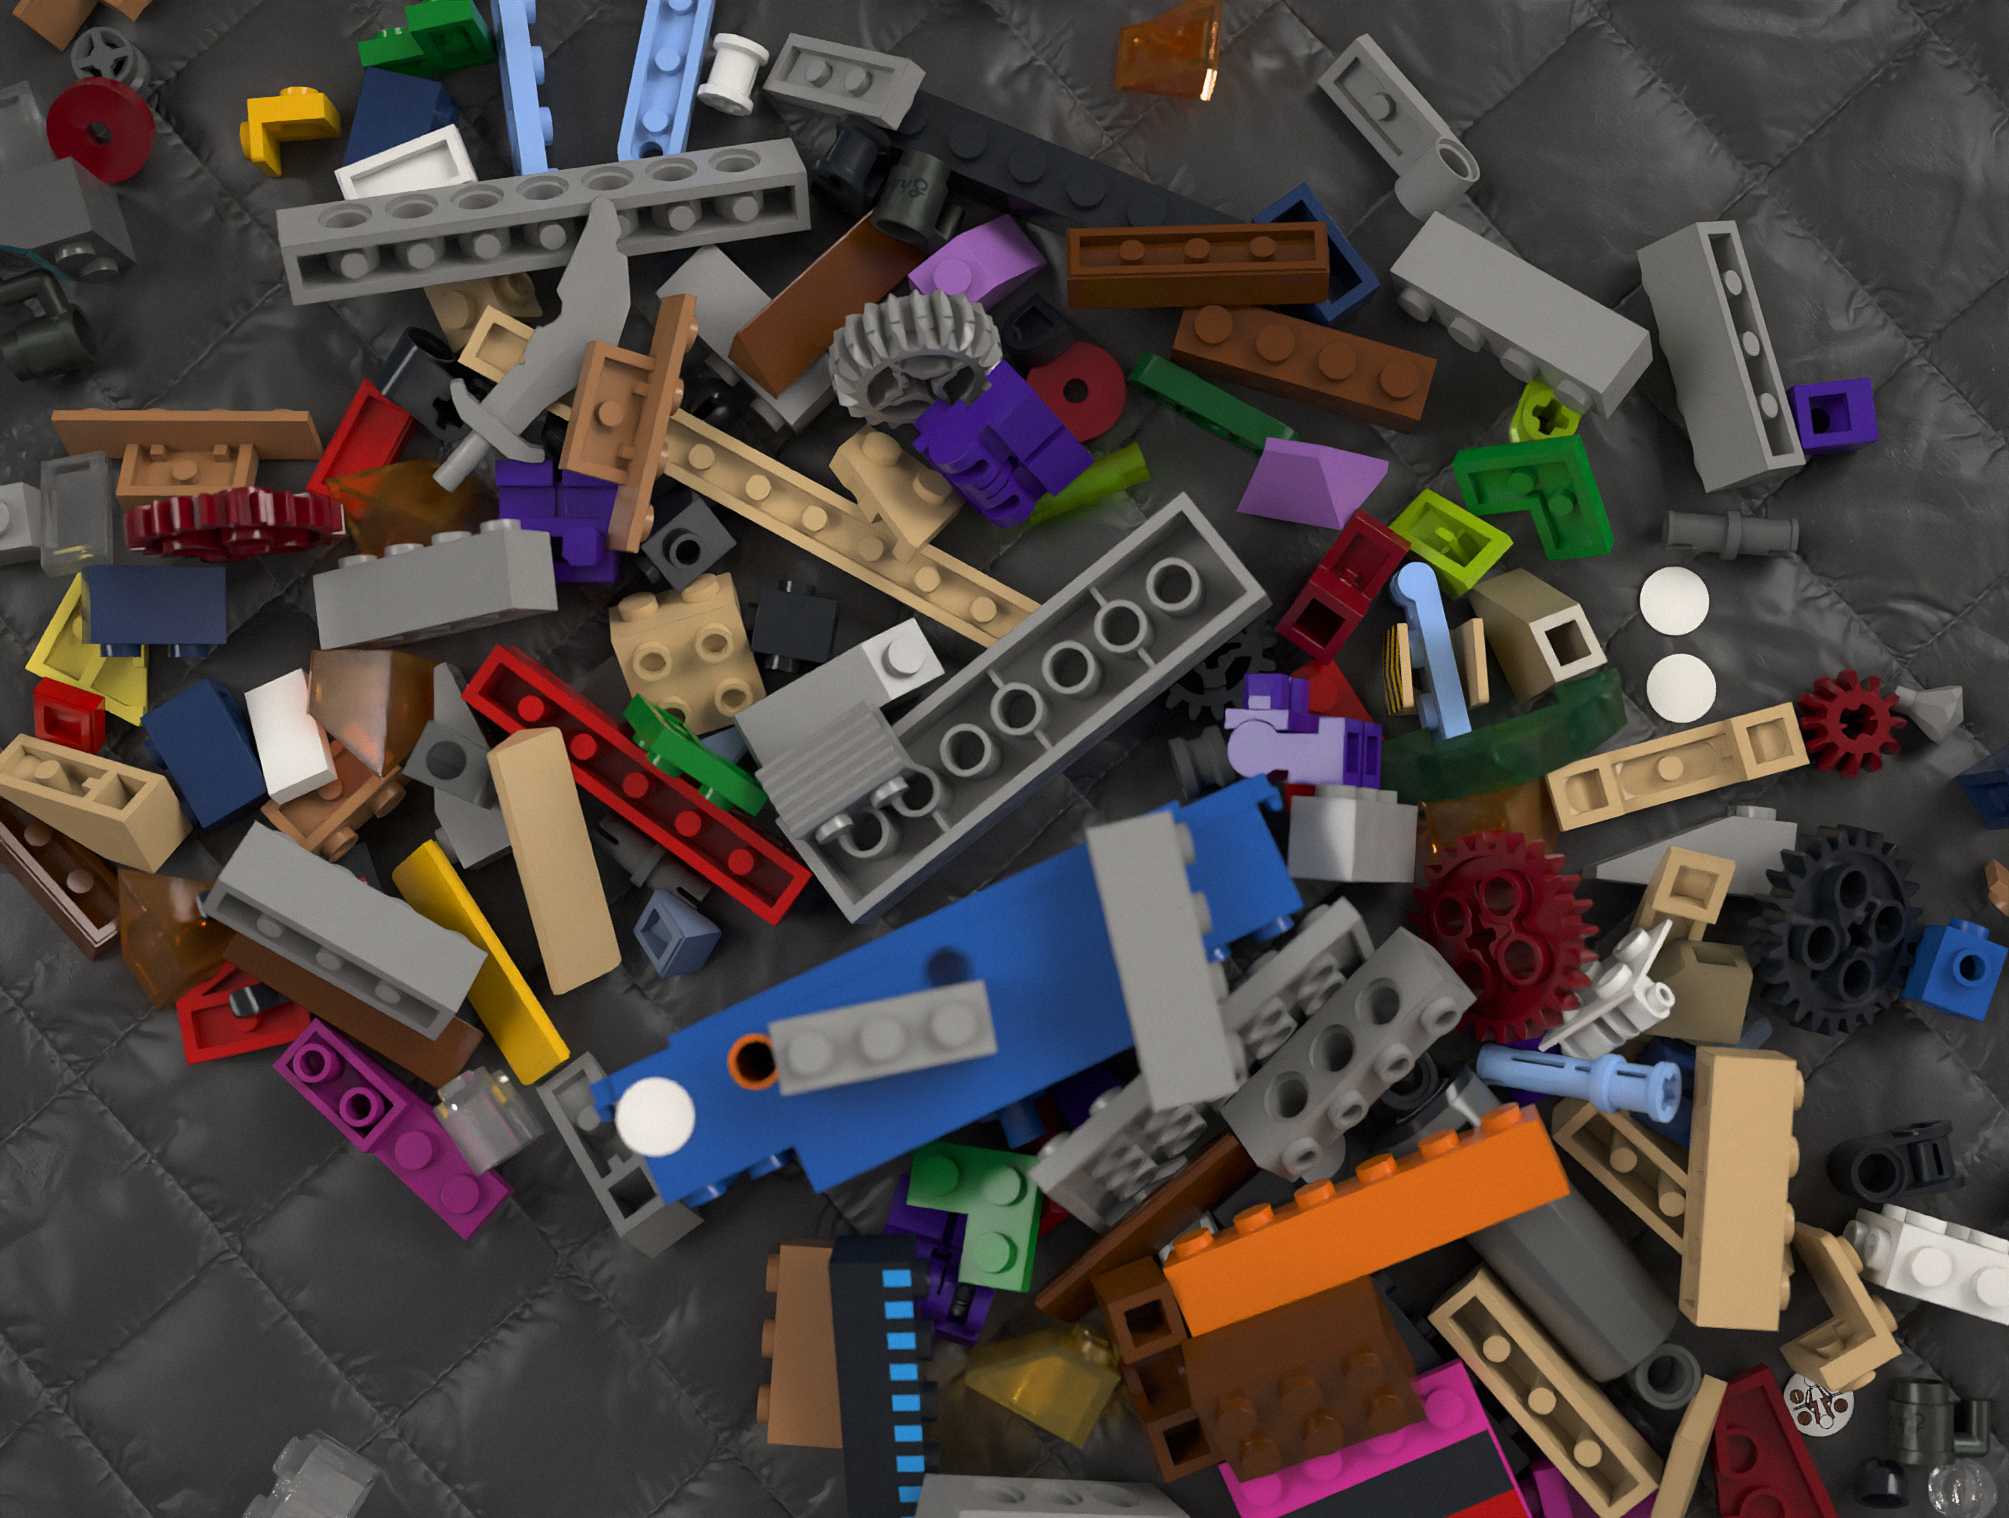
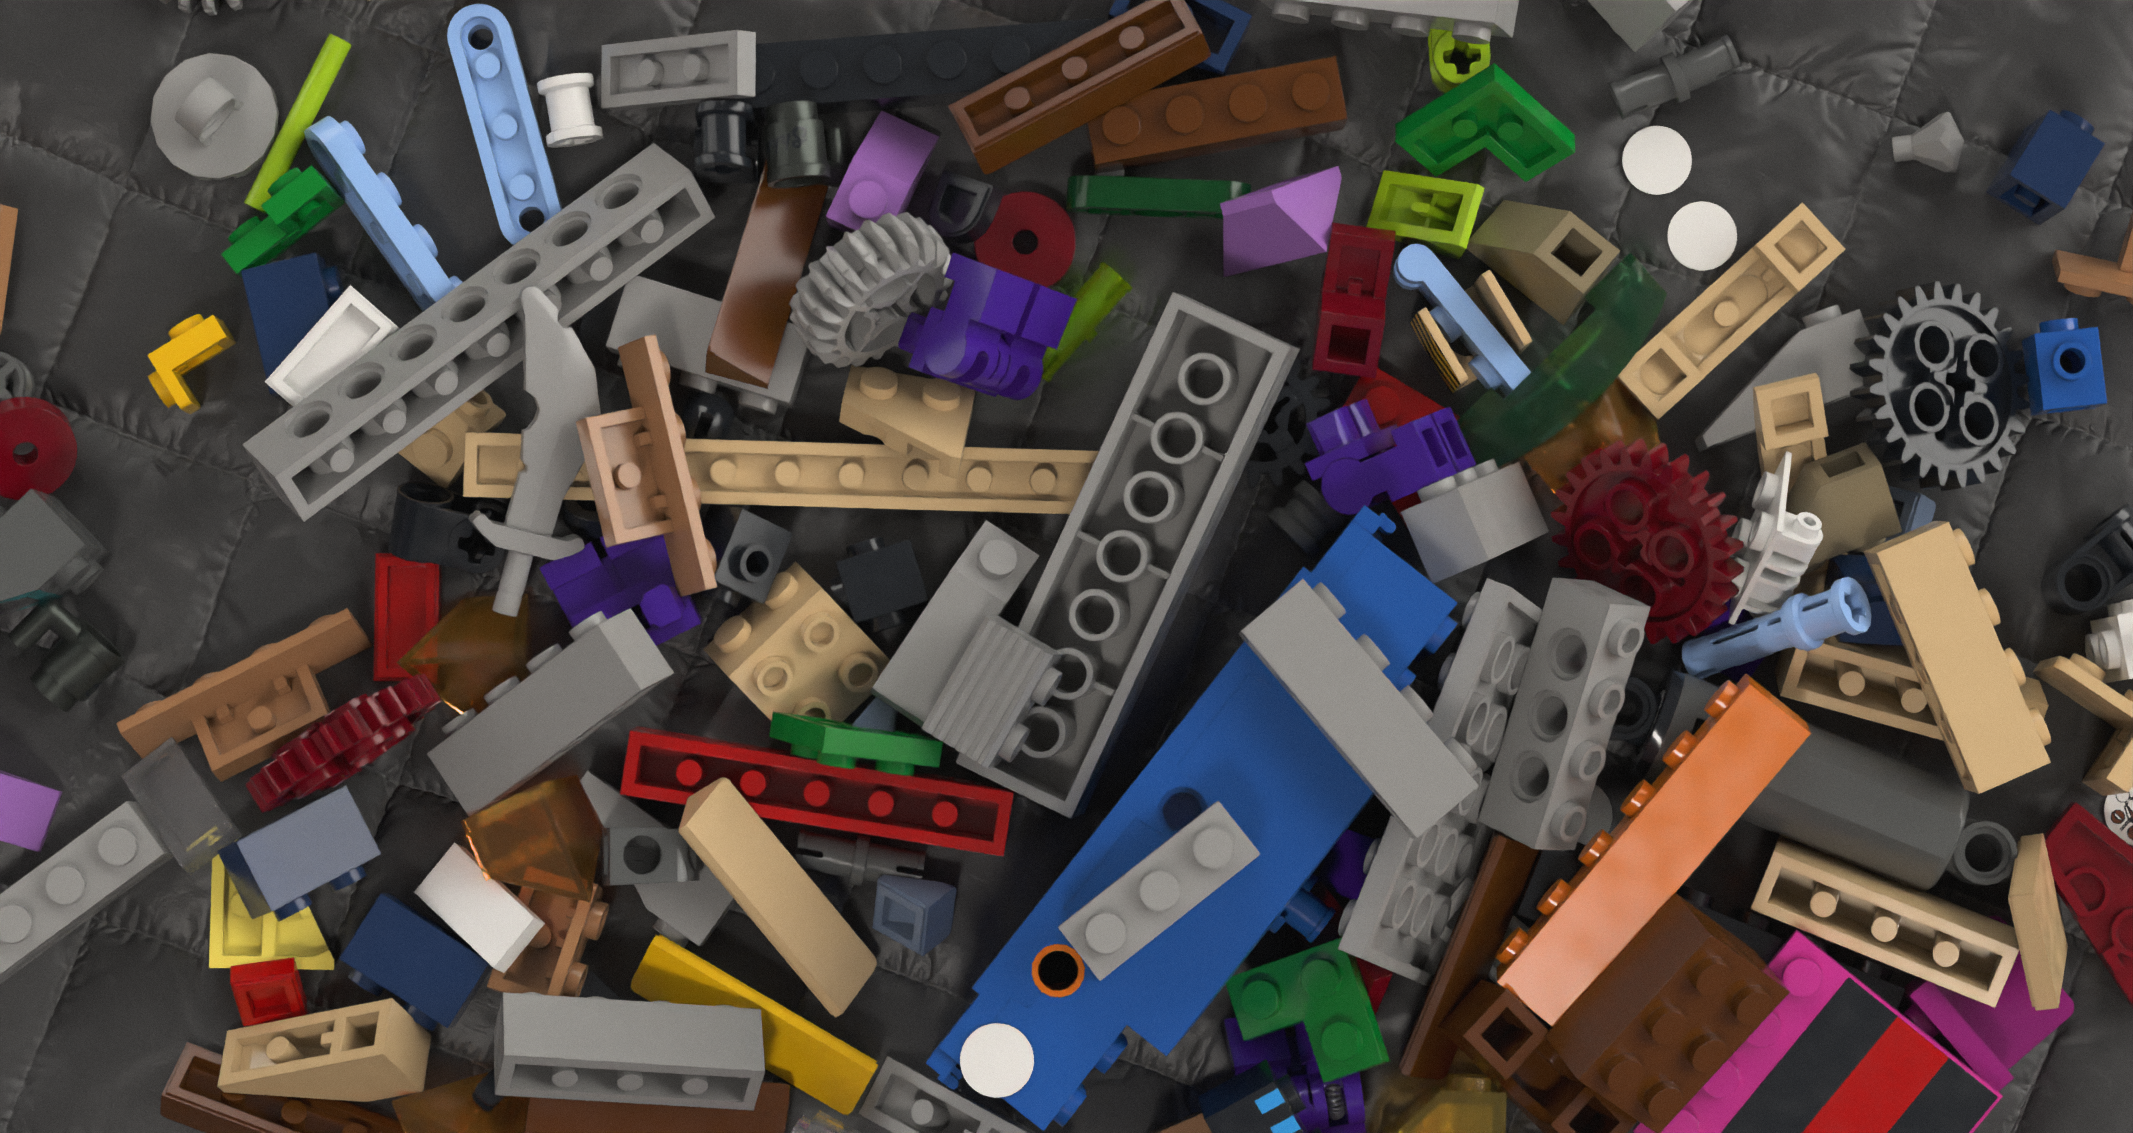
camera: 30 degrees left, 0 degrees up
(1871, 720) = (1881, 178): dark red gear -> none

